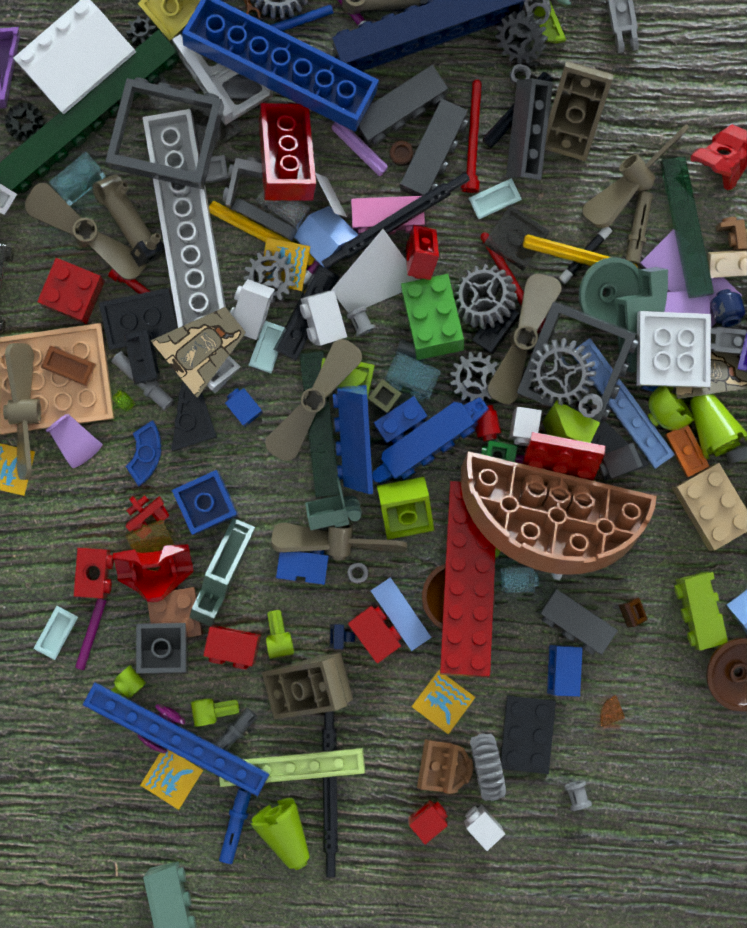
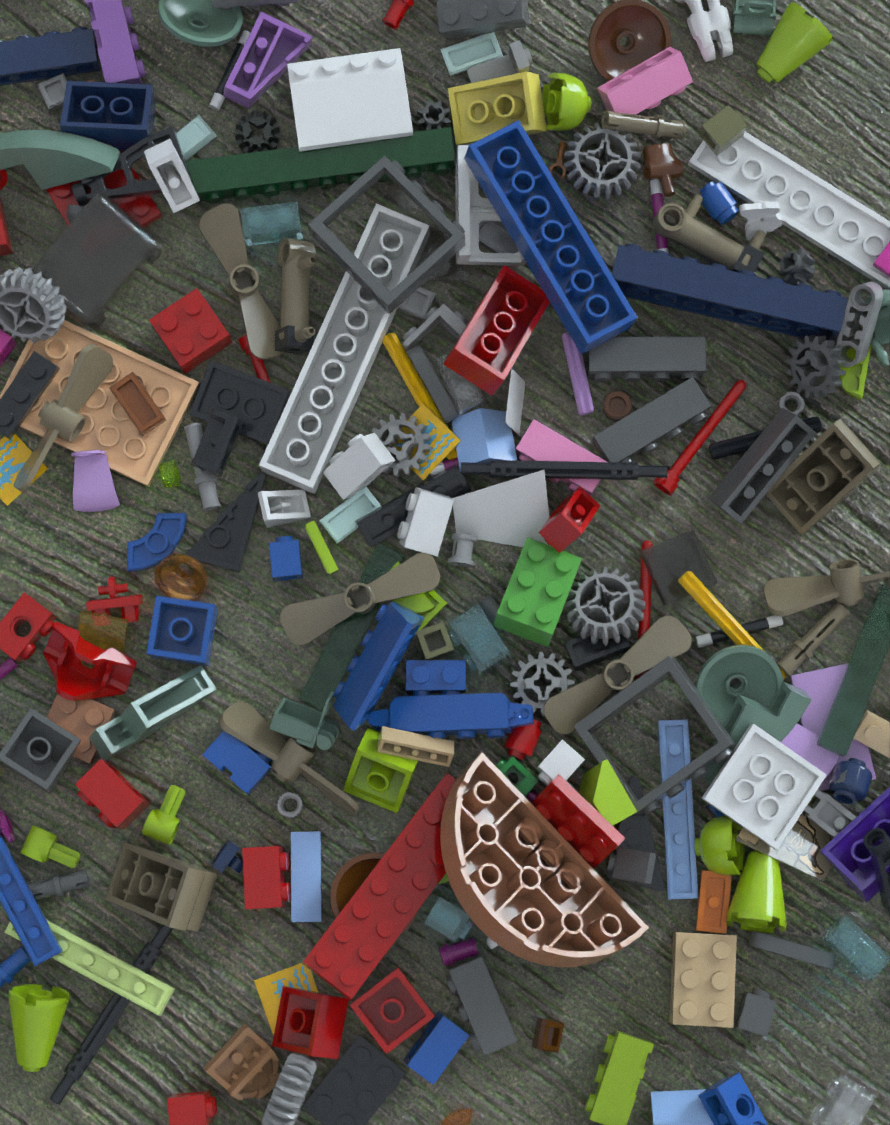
camera: 35 degrees right, 5 degrees down
(180, 472) = (177, 583): none -> clear orange piece
(200, 347) = (281, 470): sticker -> none
(263, 383) = (321, 548): none -> lime tile
(303, 18) = (603, 207): blue bar -> none
(418, 477) = (415, 746): none -> tan piece
(469, 710) = (310, 1022): none -> red slope
(495, 198) = (682, 513): light aqua tile -> none
(520, 665) = (392, 1010): none -> red brick
(536, 598) = (458, 951): none -> magenta pin
(560, 361) = (636, 721): light grey gear -> none
(585, 410) = (630, 789): light grey bush -> none

